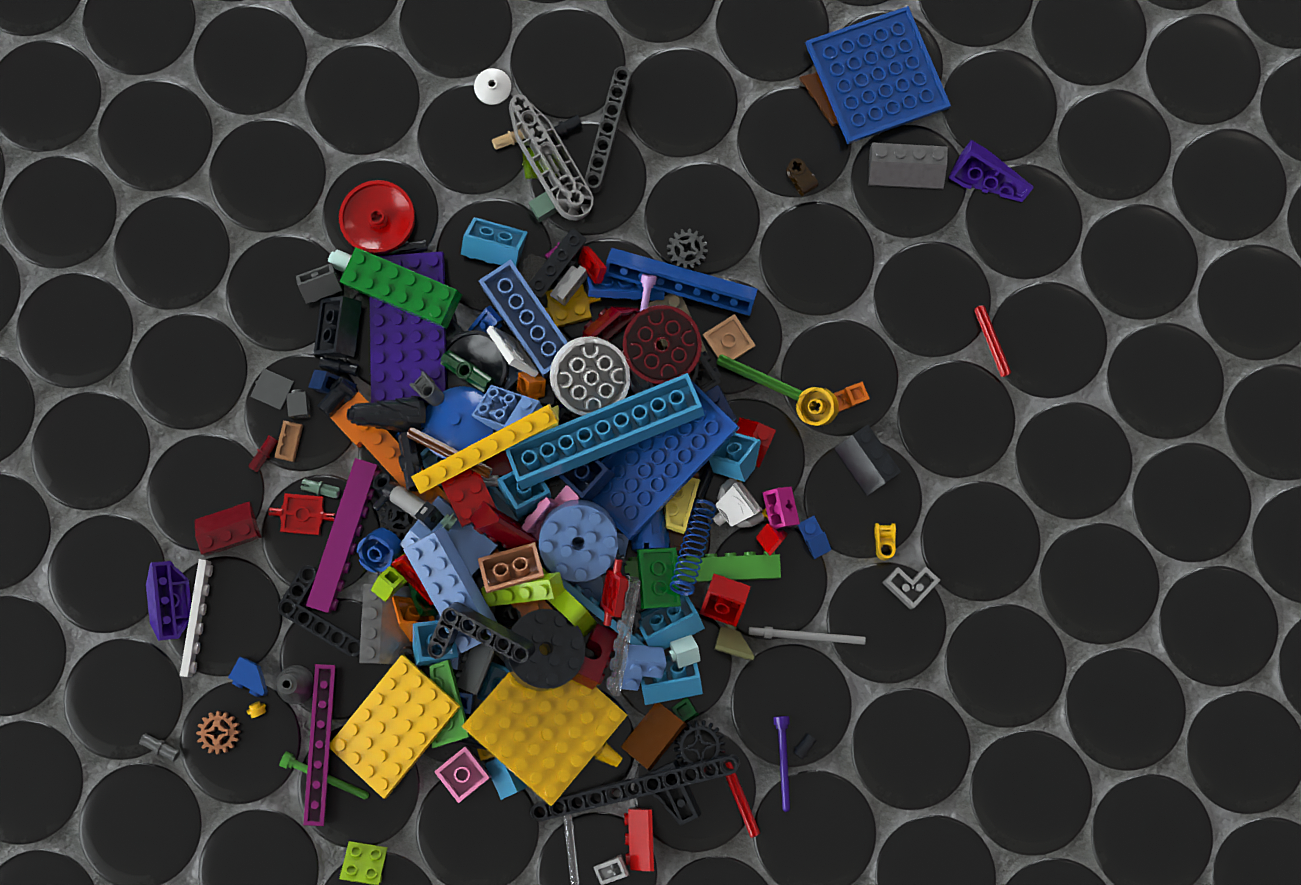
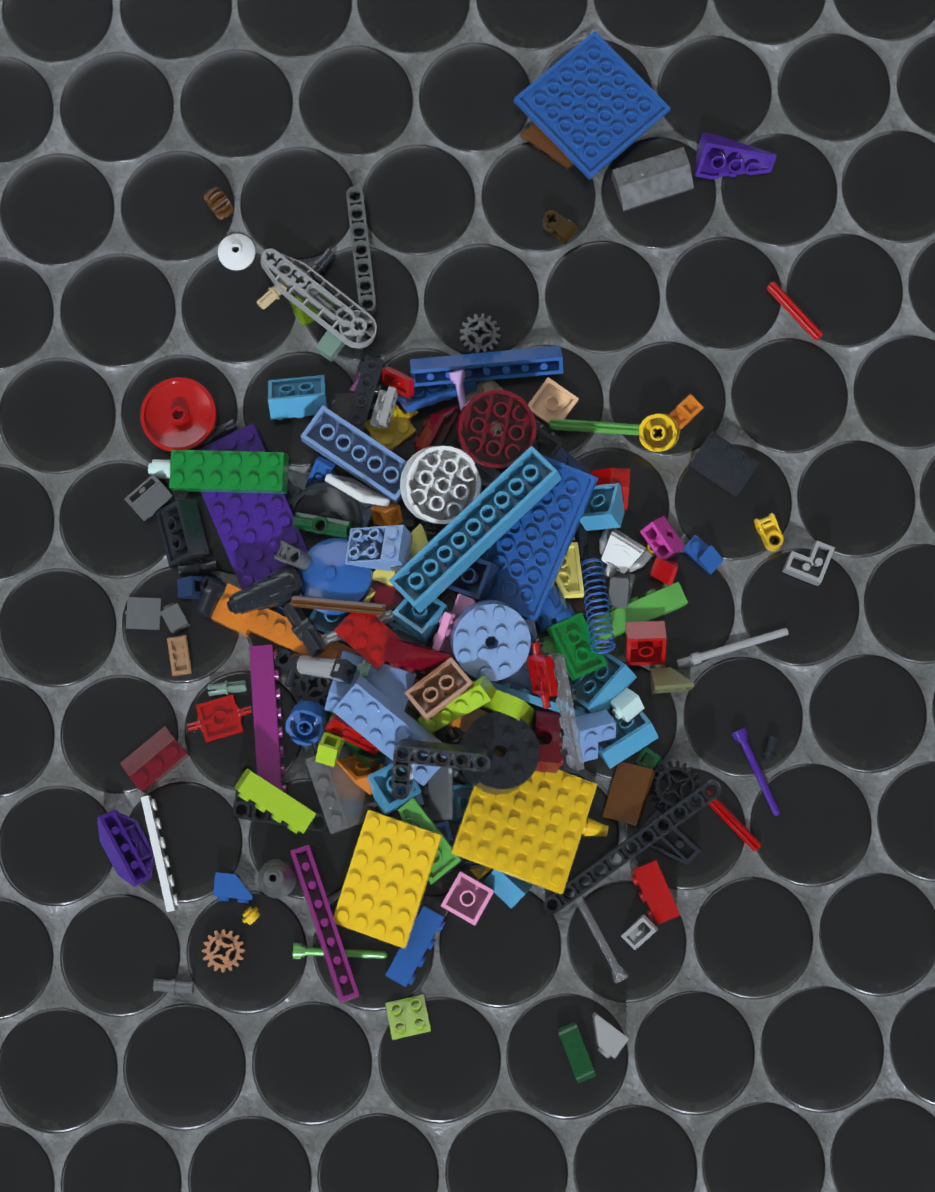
camera: 20 degrees left, 0 degrees up
(263, 453) = (160, 676): dark red axle -> none
(318, 612) = (275, 801): none -> lime wedge
(404, 794) = (421, 938): none -> blue brick
(485, 448) = (371, 588): yellow plate -> none
(493, 34) = (218, 203): none -> reddish brown gear
(722, 540) = (621, 590): none -> dark grey slope

